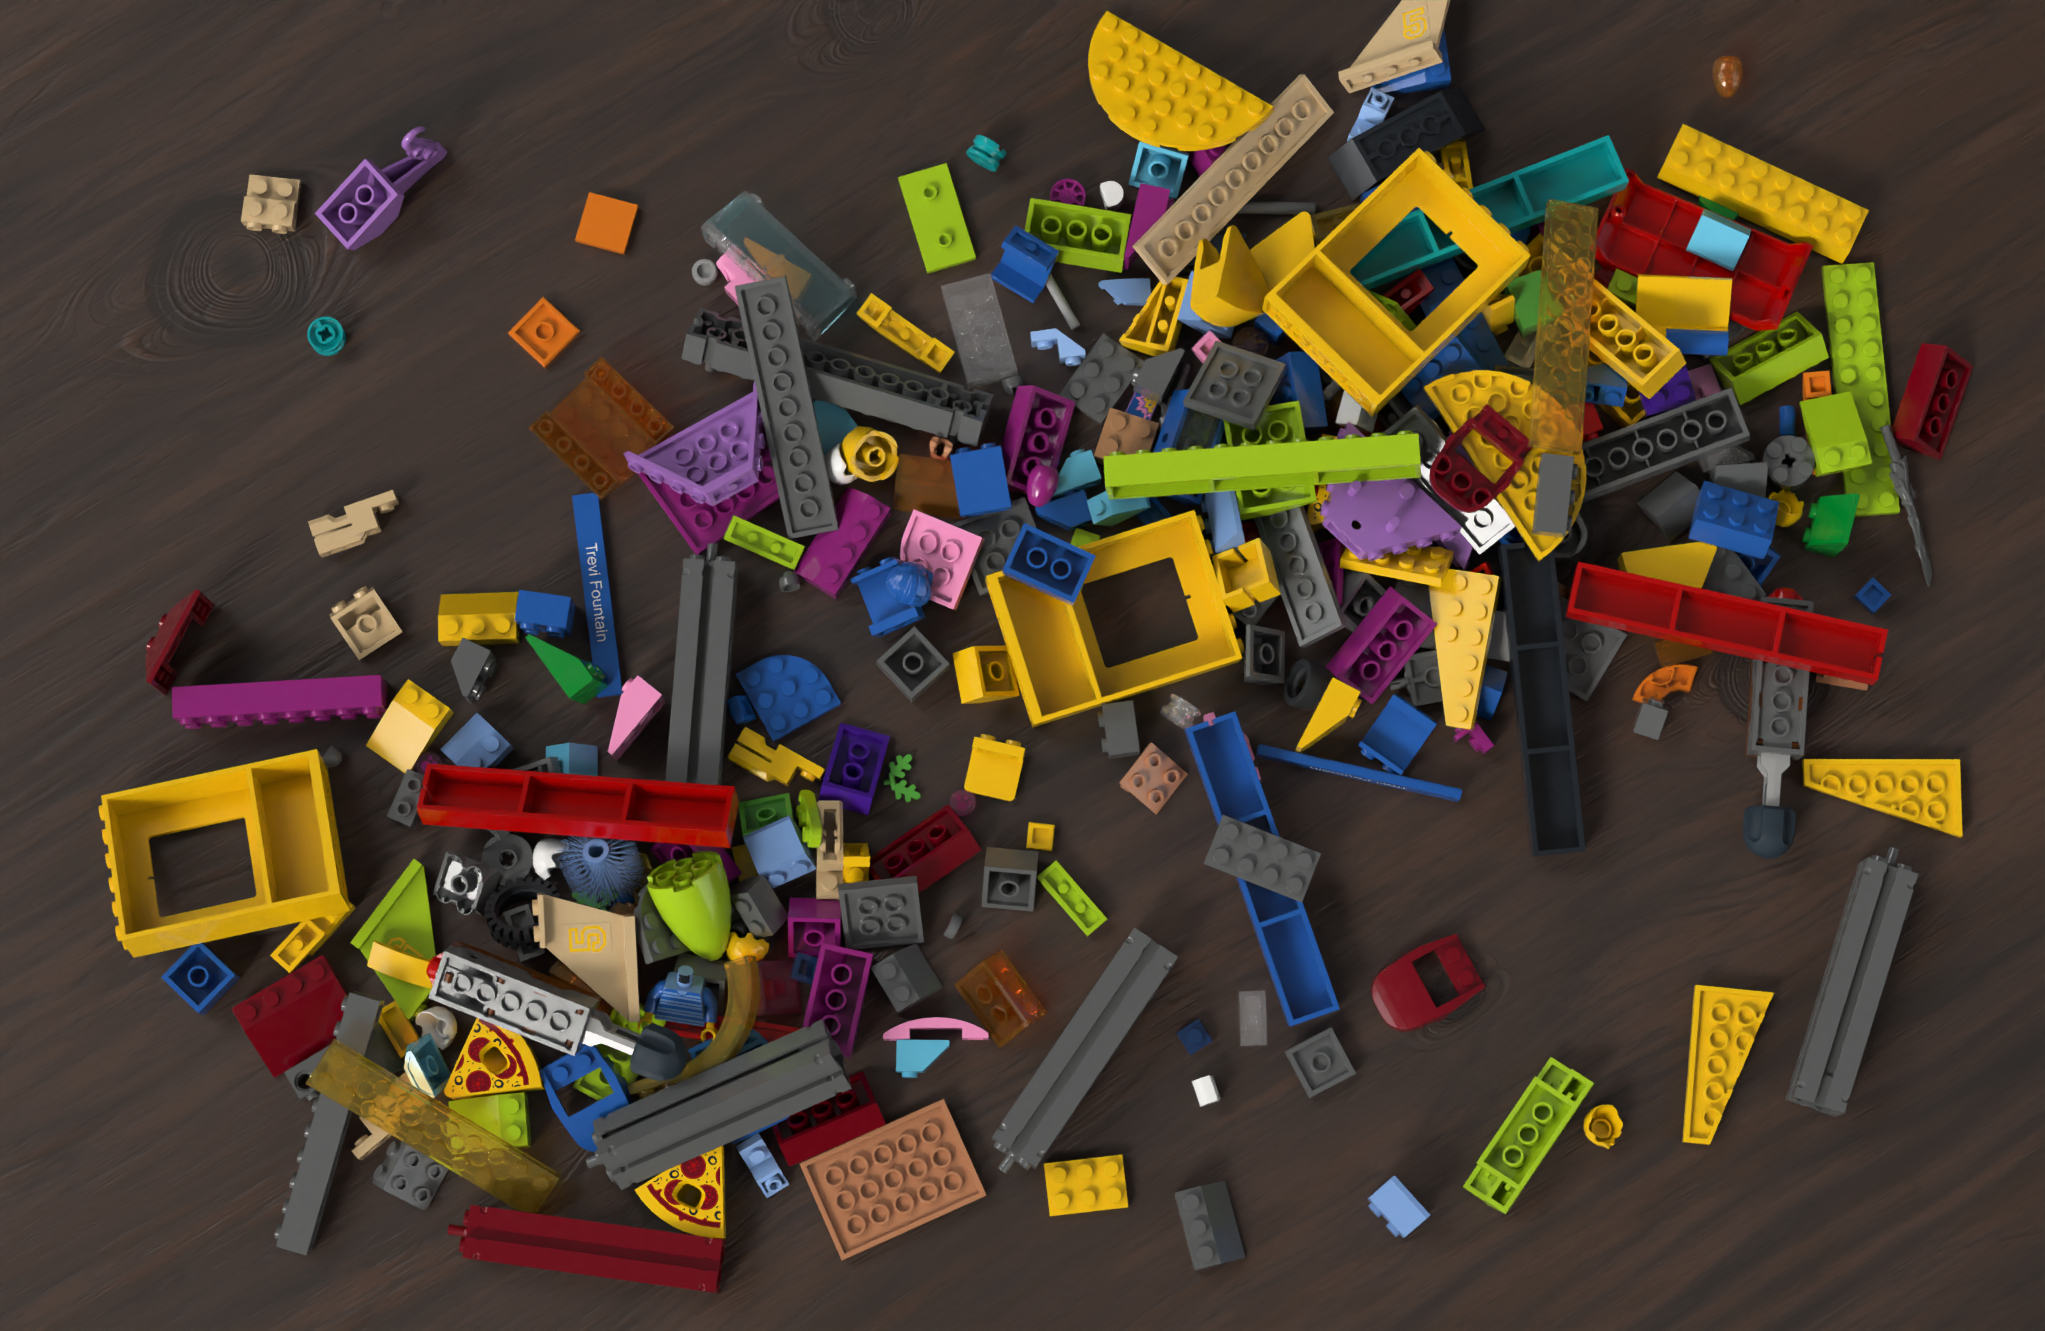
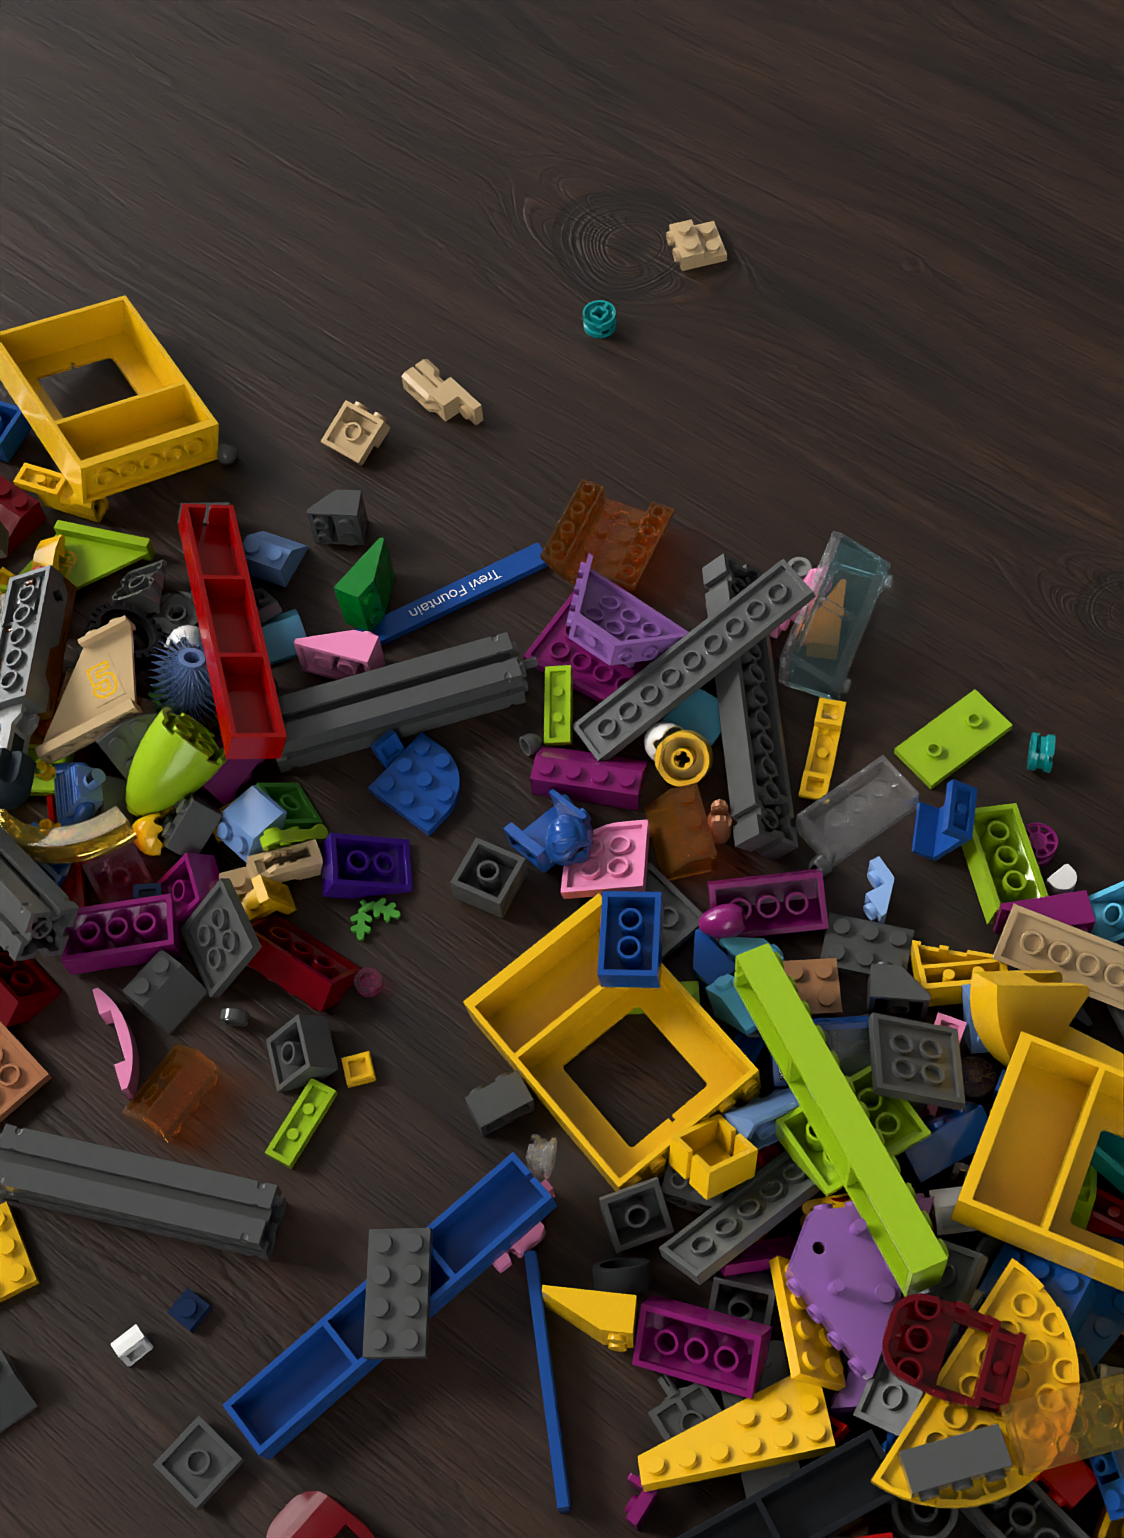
camera: 75 degrees right, 20 degrees down
(172, 627) = (266, 297): dark red slope -> none
(280, 701) = (259, 396): magenta brick -> none
(373, 197) = (734, 293): medium lavender slope -> none
(409, 726) = (277, 499): yellow slope -> none
(430, 758) = (247, 526): clear pink tile -> none
(478, 618) = (393, 513): yellow slope -> none
(544, 332) = (680, 470): orange tile -> none
(545, 613) = (413, 554): blue brick -> none
(606, 223) = (805, 479): orange tile -> none
(783, 761) = (343, 789): yellow plate -> none
(918, 1055) = (88, 1033): medium azure slope -> none
(980, 480) = (700, 862): blue panel -> none
(985, 674) = (502, 942): yellow slope -> none
(994, 767) = (413, 996): yellow bracket -> none
(1062, 303) = (930, 878): light grey bar -> none
(1128, 291) = (970, 934): medium blue slope -> none
(1141, 406) = (854, 997): tile -> none
(1153, 778) = (459, 1155): nougat hinge -> none
(1252, 1018) = (228, 1364): clear slope -> none
(1397, 735) = (607, 1406): blue panel -> none
(1491, 691) = (702, 1497): blue slope -> none

